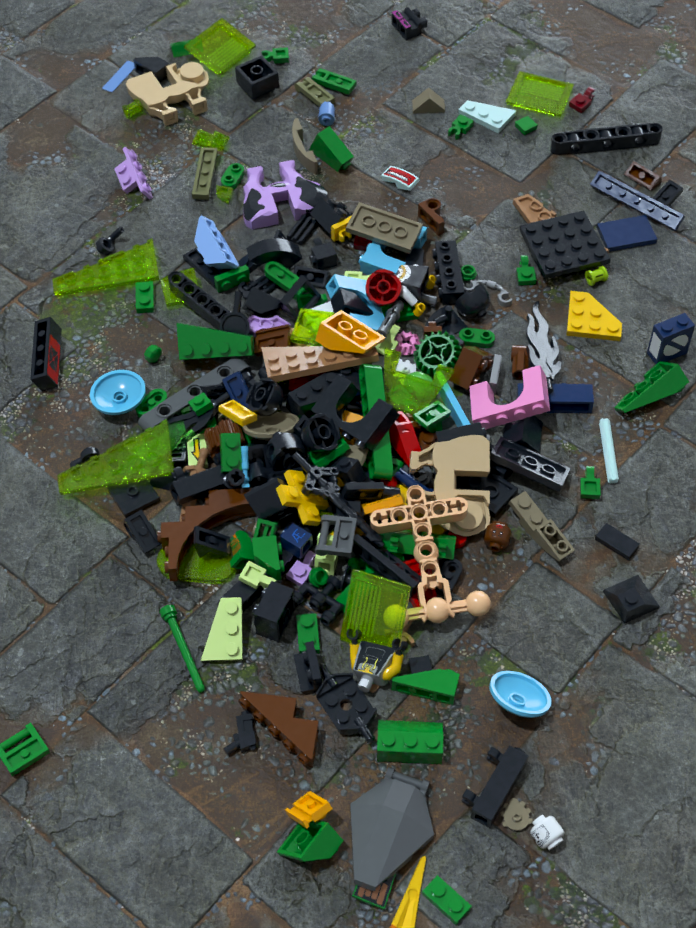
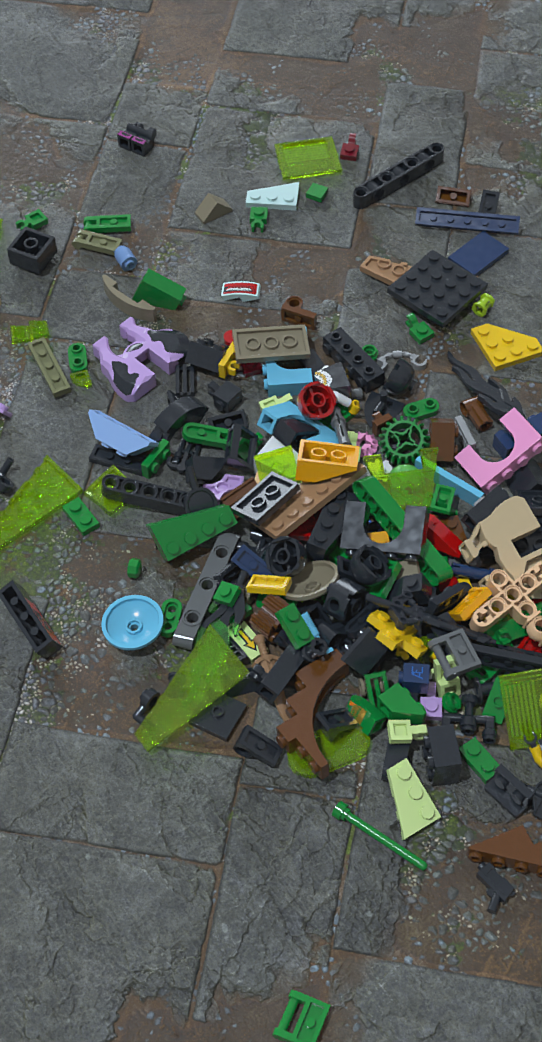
camera: 30 degrees left, 0 degrees up
(281, 344) = (265, 498): none -> black plate

